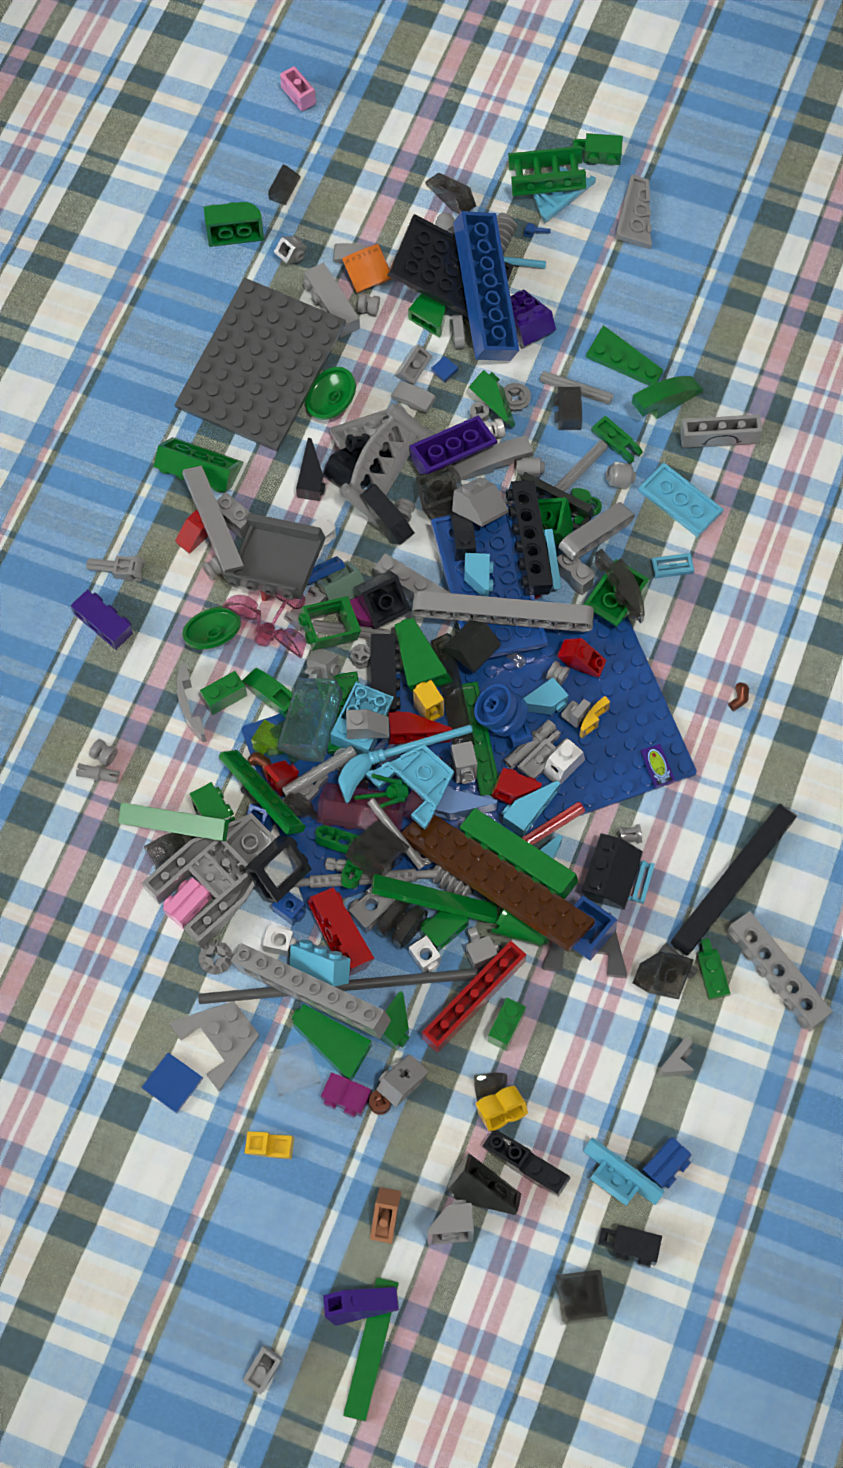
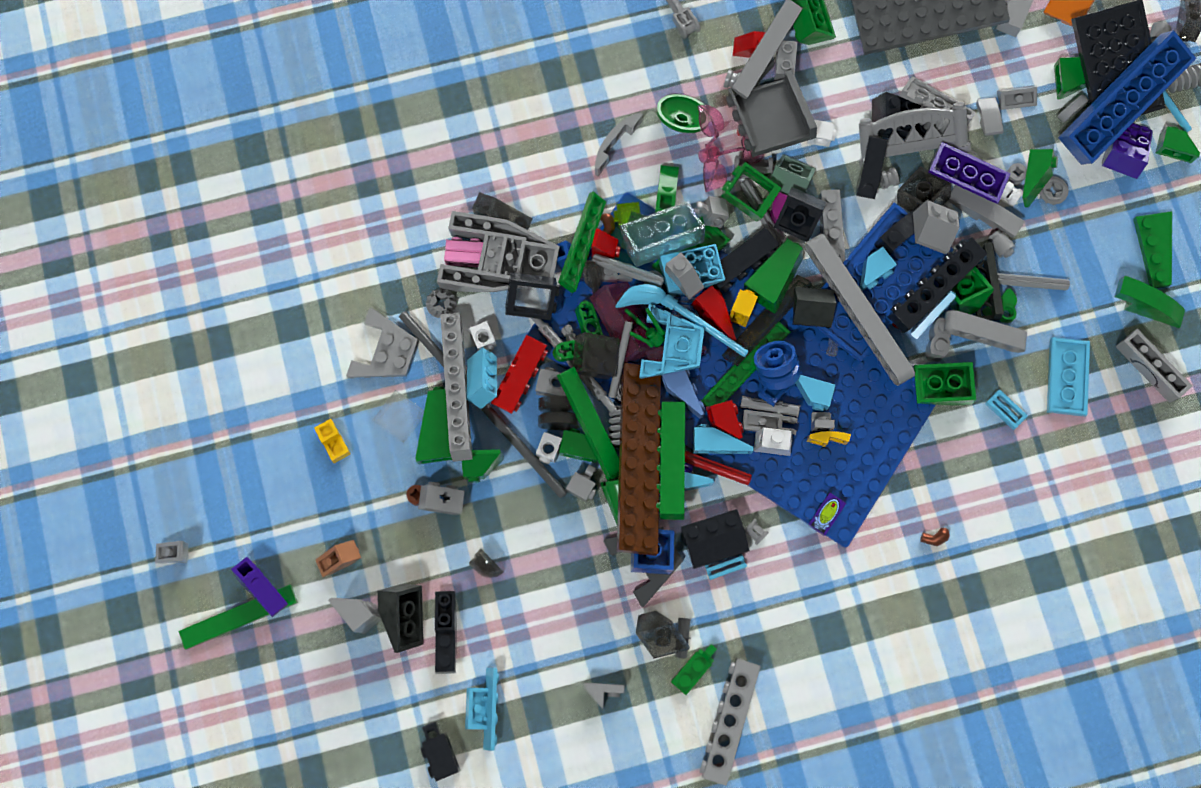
camera: 55 degrees right, 10 degrees up
(97, 773) = (515, 121): light grey pin -> none
(102, 619) = (632, 34): dark purple brick -> none
(103, 752) = (532, 111): light grey wheel -> none
(172, 1083) = (329, 341): blue tile -> none
(173, 821) = (512, 198): tile -> none
(210, 802) = (544, 216): green brick -> none
(223, 692) = (640, 159): green brick -> none
(290, 908) = (513, 328): blue brick -> none
(310, 480) = (859, 93): black slope -> none
(326, 568) = (794, 157): blue tile -> none
(331, 393) = (941, 55): green dish -> none
(345, 1095) = (404, 467): magenta brick -> none
(356, 442) = (912, 101): black bush -> none
(357, 653) = (745, 230): light grey wheel -> none
(368, 304) = (1040, 27): light grey wheel -> none
(444, 369) = (1032, 122): blue tile -> none
(464, 762) = (714, 368): light grey brick -> none
(474, 996) = (541, 505): red brick -> none
(501, 1108) = (472, 585): yellow brick -> none
(506, 1024) = (539, 544): green brick -> none
(551, 281) = (1177, 145): none -> green slope
(558, 673) = (843, 386): light grey wheel -> none
(568, 408) = (1076, 237): clear smoke brick -> none
(580, 1297) = (372, 742): clear smoke brick -> none
(581, 657) = (871, 394): red slope -> none
(586, 390) = (1100, 230): light grey axle -> none
(616, 438) = (1080, 290): green hinge -> none
(620, 475) = (1050, 316): light grey head -> none
(626, 587) = (951, 389): clear smoke slope -> none
(667, 1163) = (517, 737): blue brick -> none
(733, 879) = (780, 635): black beam -> none

